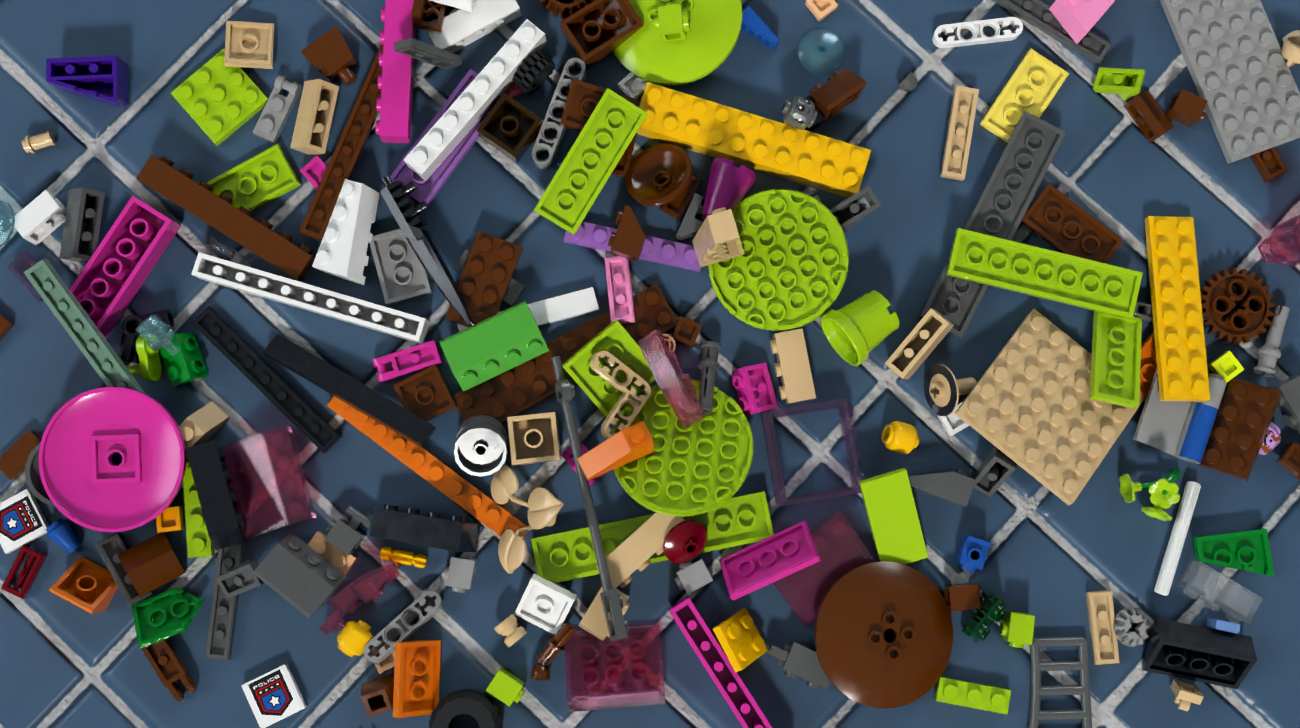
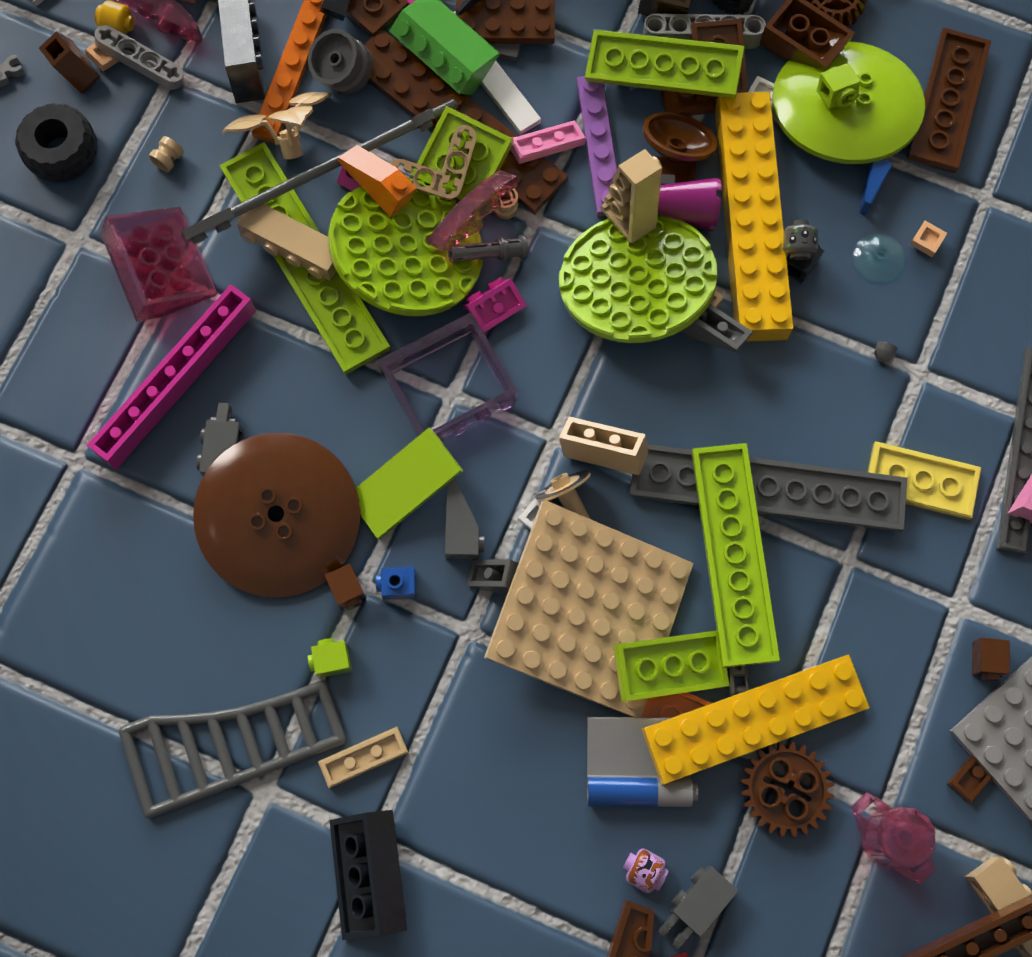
camera: 70 degrees right, 10 degrees down
(403, 557) = (208, 39): yellow axle -> none
(416, 677) = (92, 81): orange plate -> none
(460, 573) = (208, 92): light grey brick -> none
(506, 687) = (108, 167): lime brick -> none
(534, 438) = (364, 109): tan brick -> none
(540, 672) = (132, 196): reddish brown hinge -> none
(545, 604) = (201, 174): white plate -> none
(556, 644) = (165, 199): reddish brown axle -> none
(594, 619) = (220, 243): tan brick -> none
(629, 236) = (604, 126): reddish brown slope -> none
(685, 541) = (316, 273): dark red dish -> none
(686, 331) = (529, 219): reddish brown plate -> none
(692, 576) = (278, 306): light grey brick -> none
(740, 639) = (224, 368): yellow plate -> none
(769, 560) = (316, 367): dark pink tile -> none
(793, 366) = (532, 333): tan brick -> none
(837, 93) = (836, 280): reddish brown slope -> none
(839, 552) = (332, 419): clear pink slope -> none
(859, 327) = (599, 378): lime piece -> none
(900, 437) = (497, 465): yellow head -> none
(959, 133) = (853, 421): tan plate -> none
(972, 695) = (241, 636): lime plate -> none
(976, 29) = (977, 404): white beam -> none
(995, 612) = (328, 618): dark green hinge -> none
(1069, 227) = (799, 573): reddish brown plate -> none
(1119, 81) = (986, 570): lime slope -> none
(1122, 625) = (373, 774): light grey gear -> none
(1148, 116) = (964, 622): reddish brown panel -> none
(1163, 493) = (534, 760): lime plant -> none
(1177, 538) = (500, 810): white axle -> none
(1185, 694) = (317, 875): tan tile -> none
(1219, 592) = (446, 877): clear brick -> none
(1223, 625) = (410, 894): medium blue tile -> none
(1226, 366) = (712, 802): neon yellow plate -> none
(1237, 550) = (503, 884): green wing -> none
(1240, 428) = (645, 837): reddish brown plate -> none
(1270, 351) = (773, 848): light grey pin -> none

